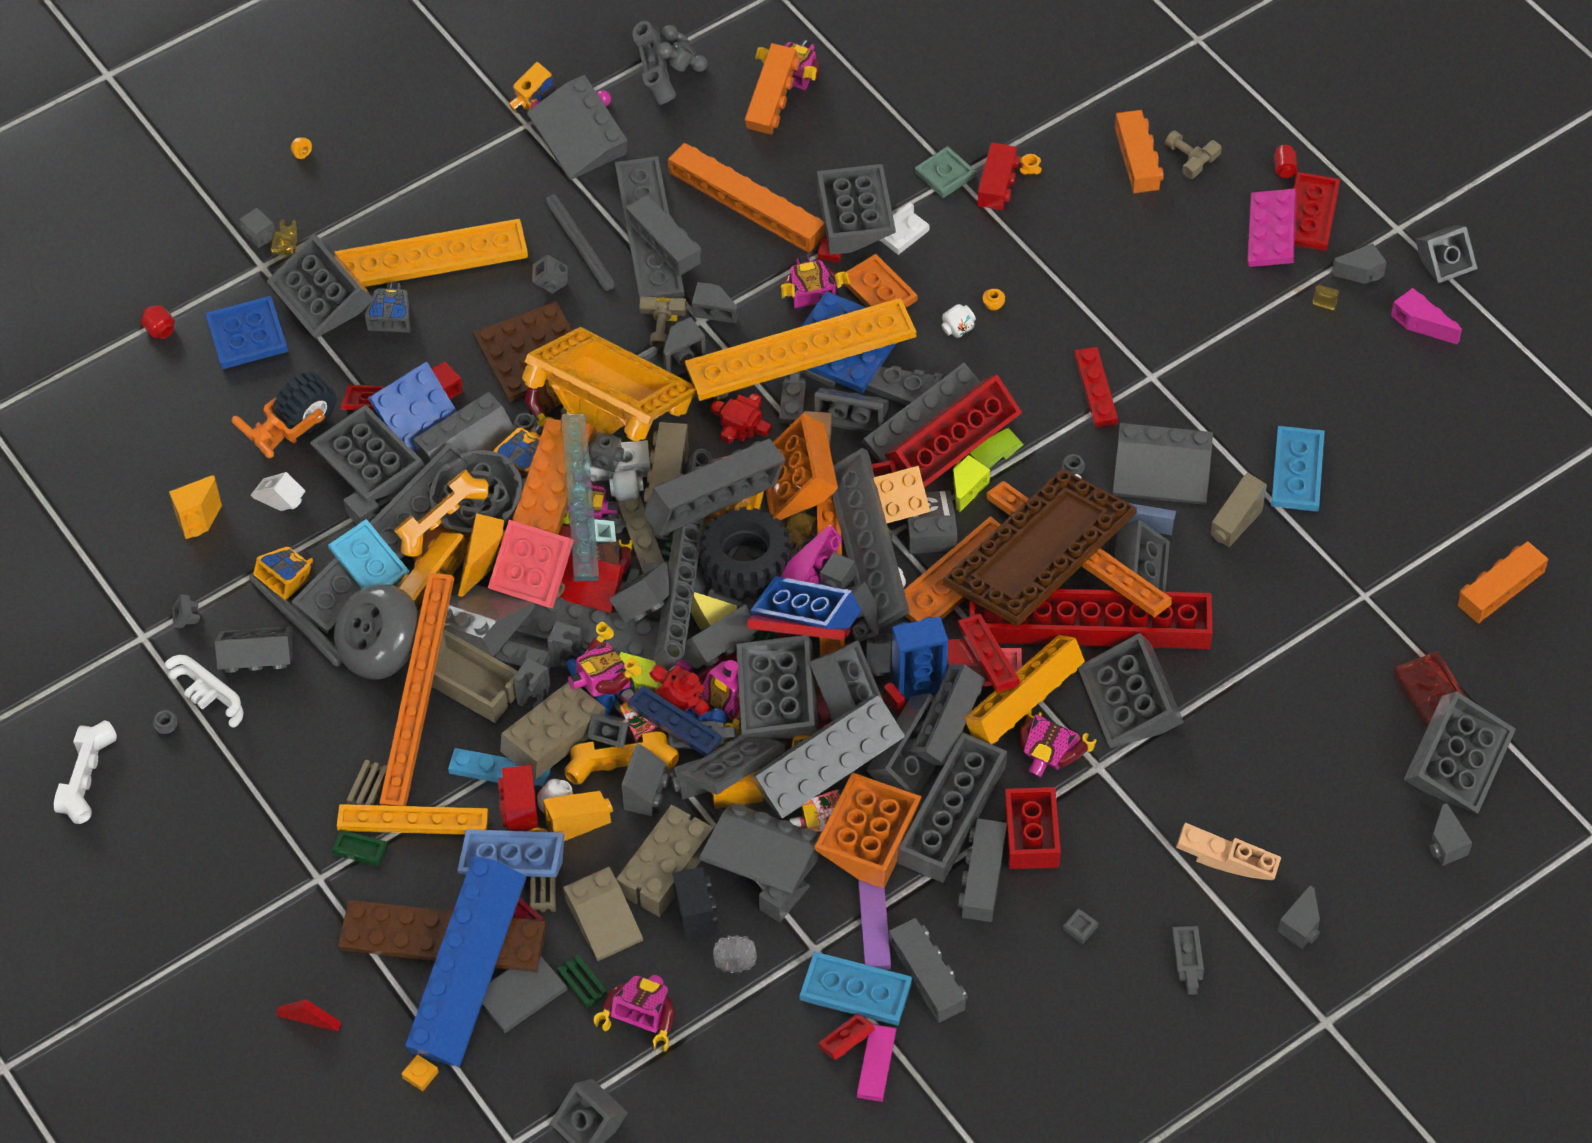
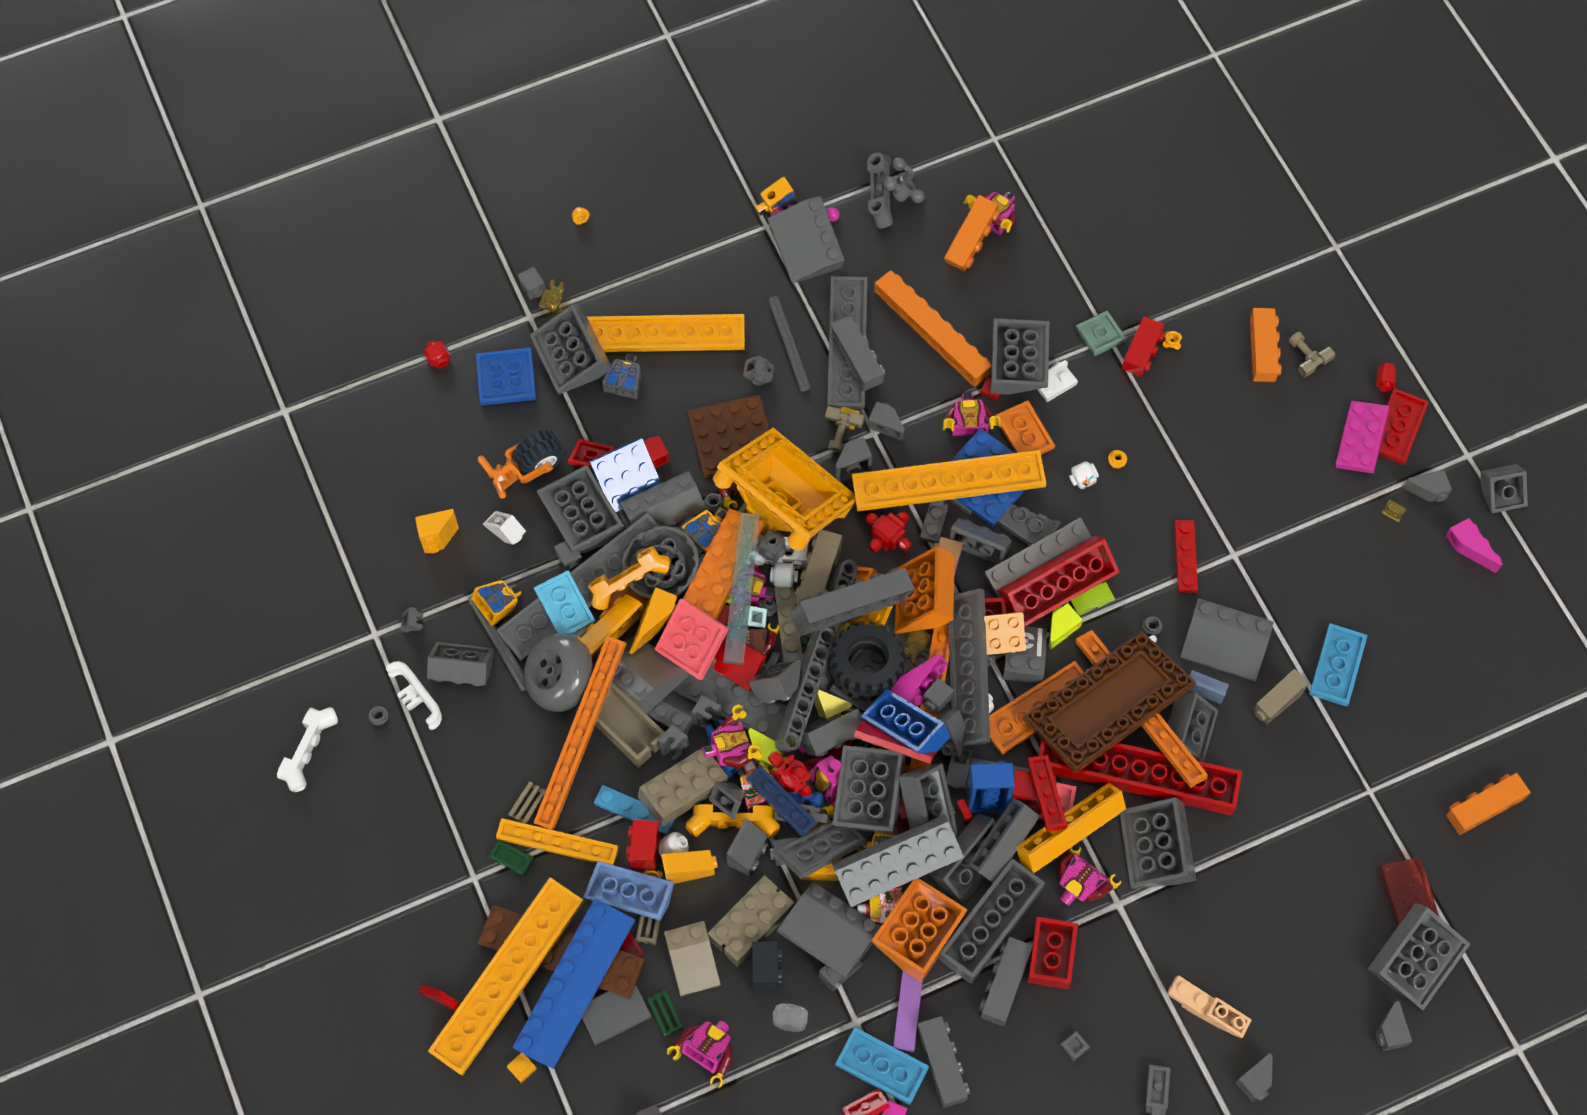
camera: 10 degrees right, 10 degrees up
(380, 972) = (506, 976): none -> light orange plate

